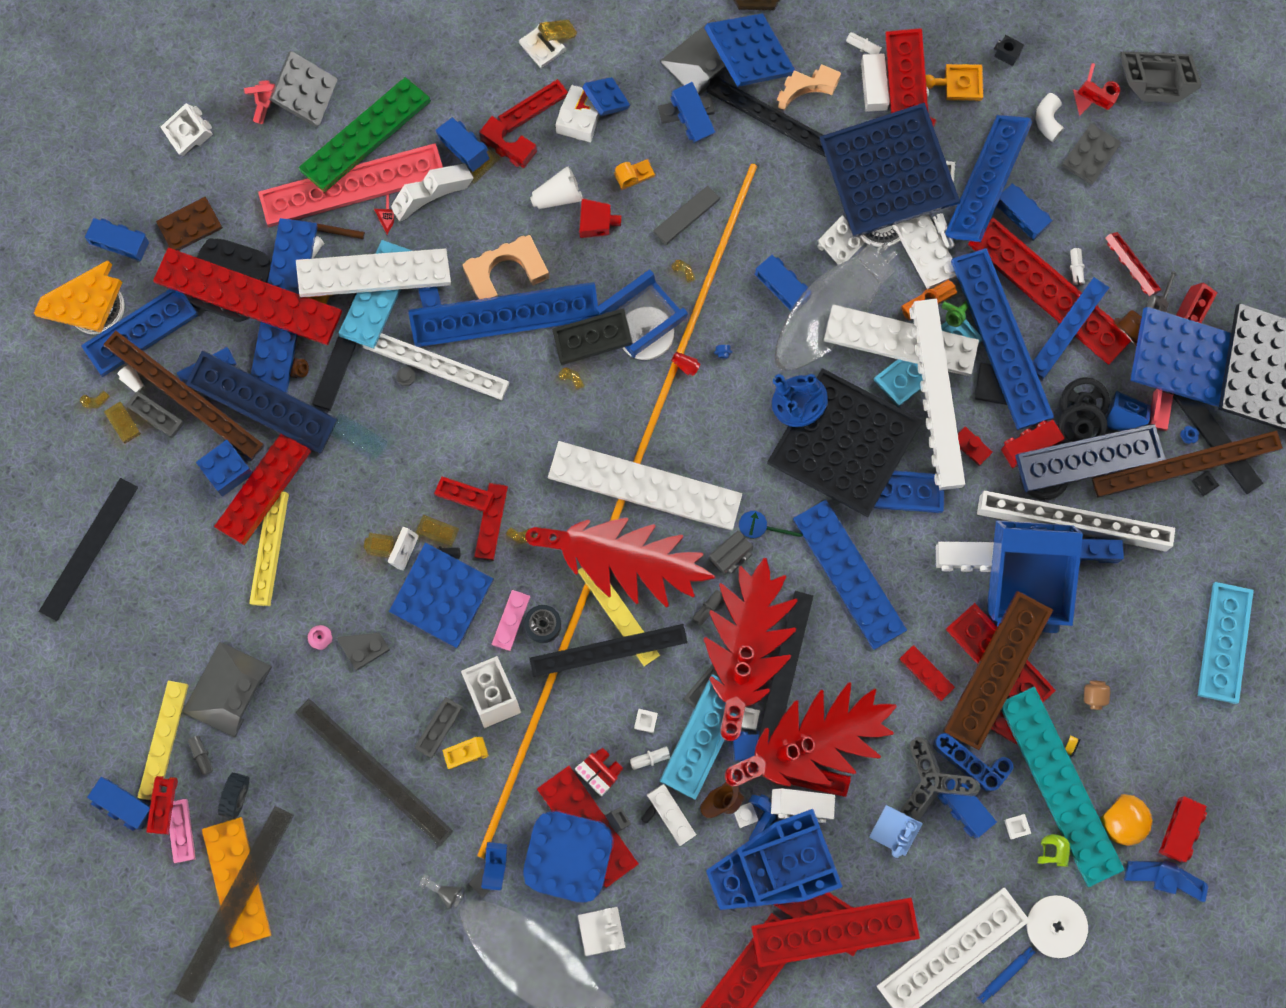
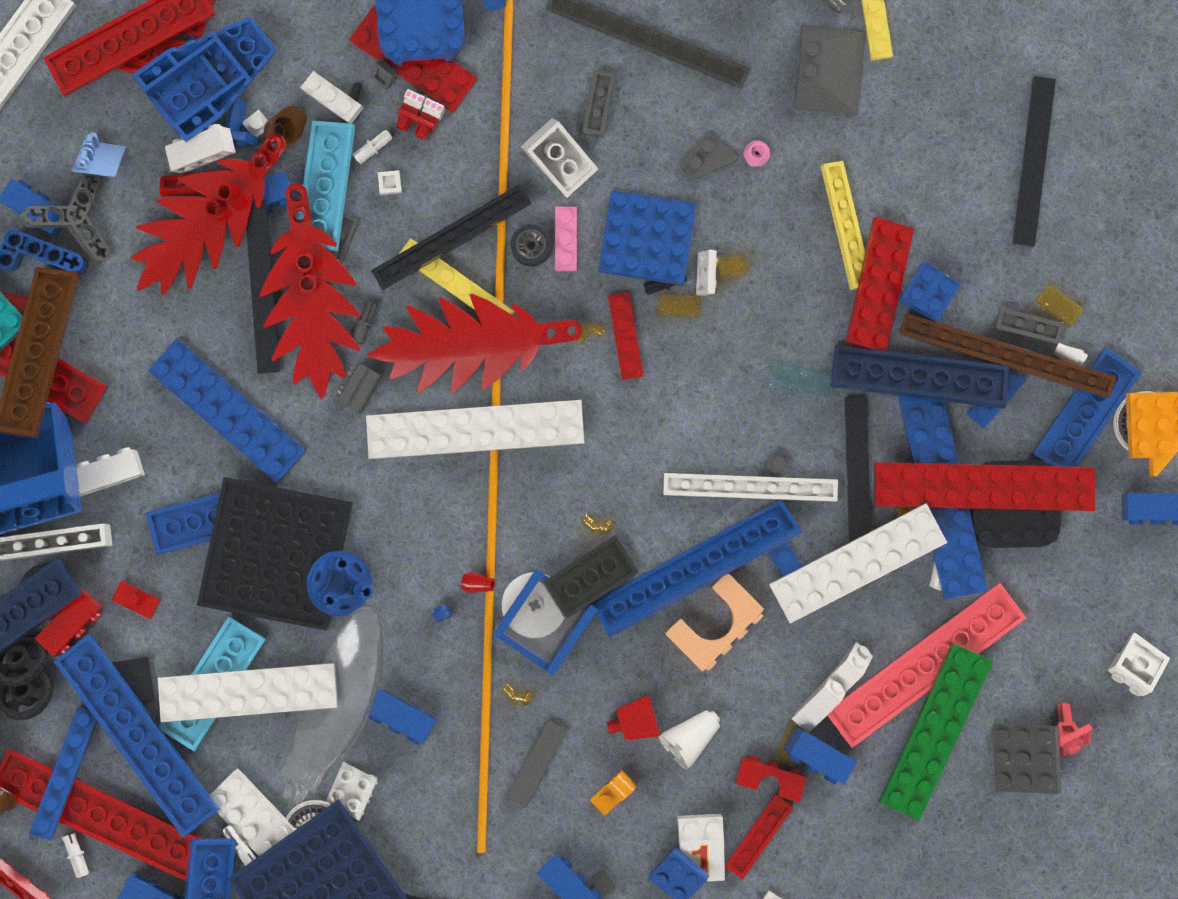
camera: 165 degrees right, 10 degrees up
(94, 402) = (1100, 317): clear yellow arm -> none
(189, 224) = (1086, 554): reddish brown plate -> none
(299, 368) = (896, 431): reddish brown plate -> none
(339, 231) = (930, 604): reddish brown bar -> none
(370, 309) = (844, 521): medium azure plate -> none
(385, 216) = (873, 642): piece -> none
(464, 494) = (663, 352): red plate -> none
(465, 752) = (560, 87): yellow plate -> none
(750, 718) = (281, 221): white plate -> none
(754, 524) = (345, 430): blue piece -> none
(927, 673) = (114, 333): red plate -> none
(937, 394) = (187, 638): white brick -> none
(941, 293) = (222, 763): orange piece -> none
(955, 315) = (193, 740): bright green piece -> none

